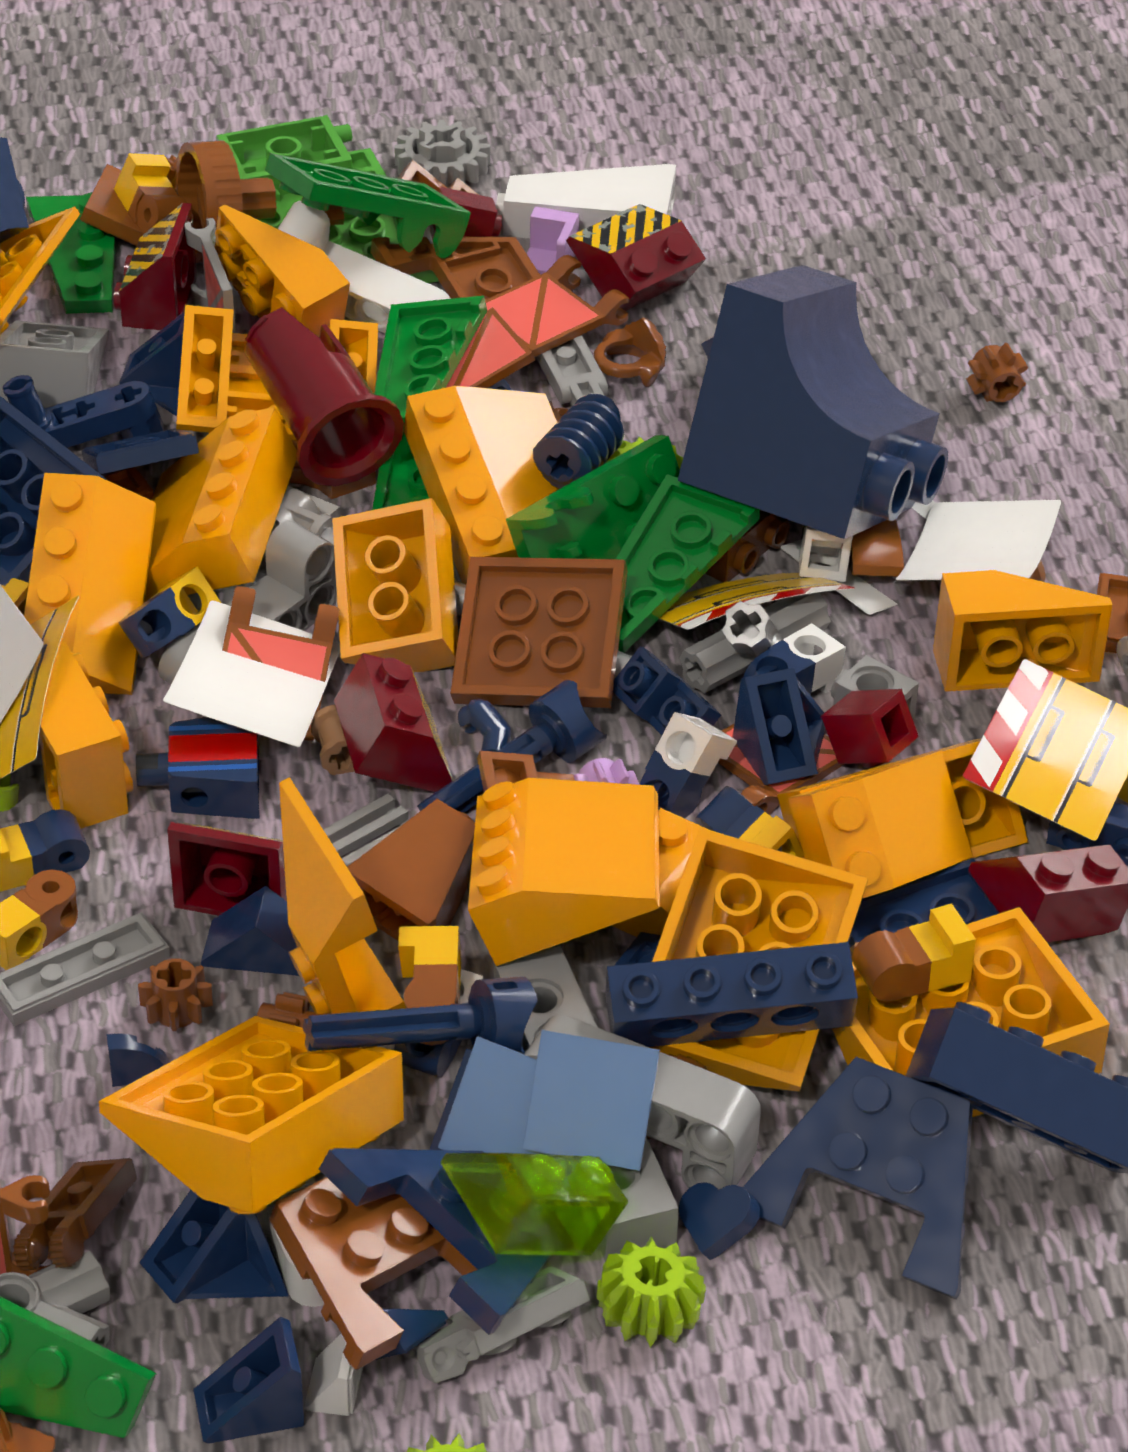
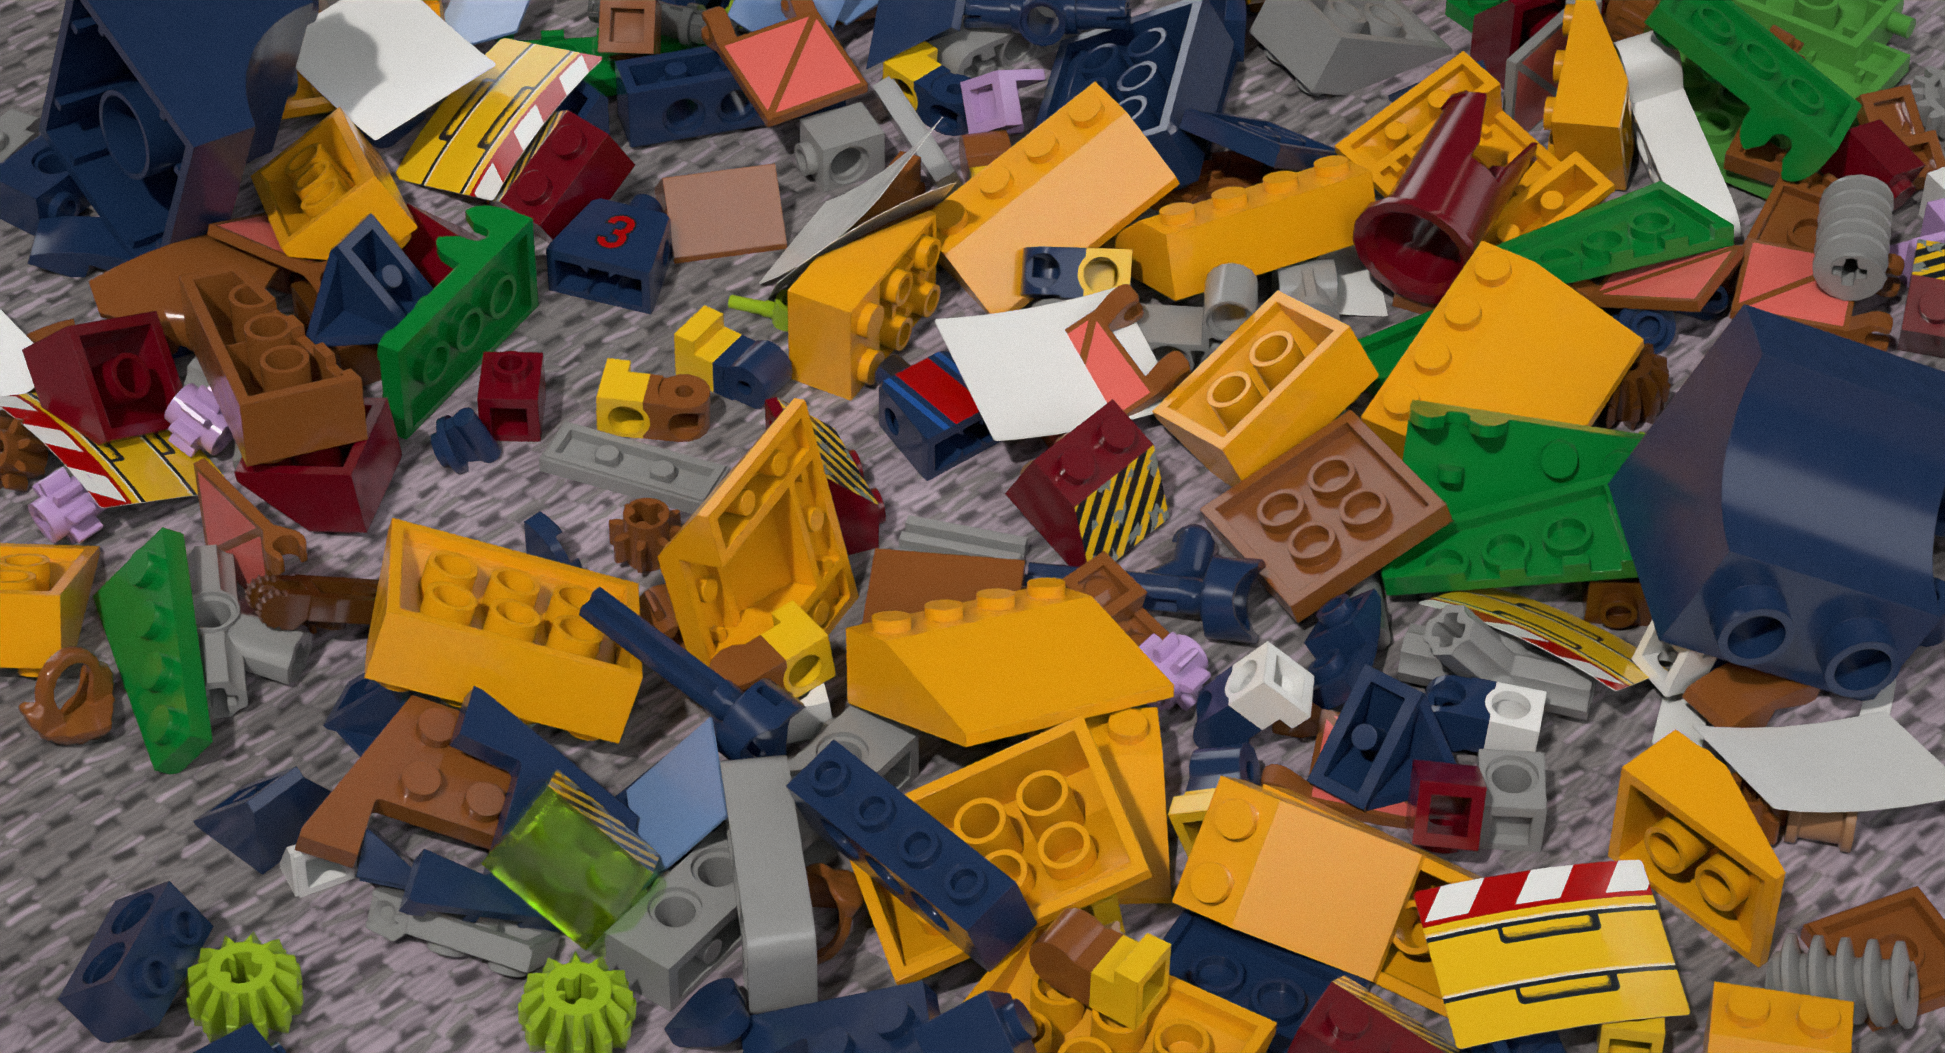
camera: 55 degrees right, 0 degrees up
(121, 409) = (1289, 94): dark blue beam -> none
(546, 257) = (1853, 237): none -> light grey piece
(580, 440) = (1593, 391): dark blue piece -> none
(591, 1099) = (710, 831): medium blue piece -> none

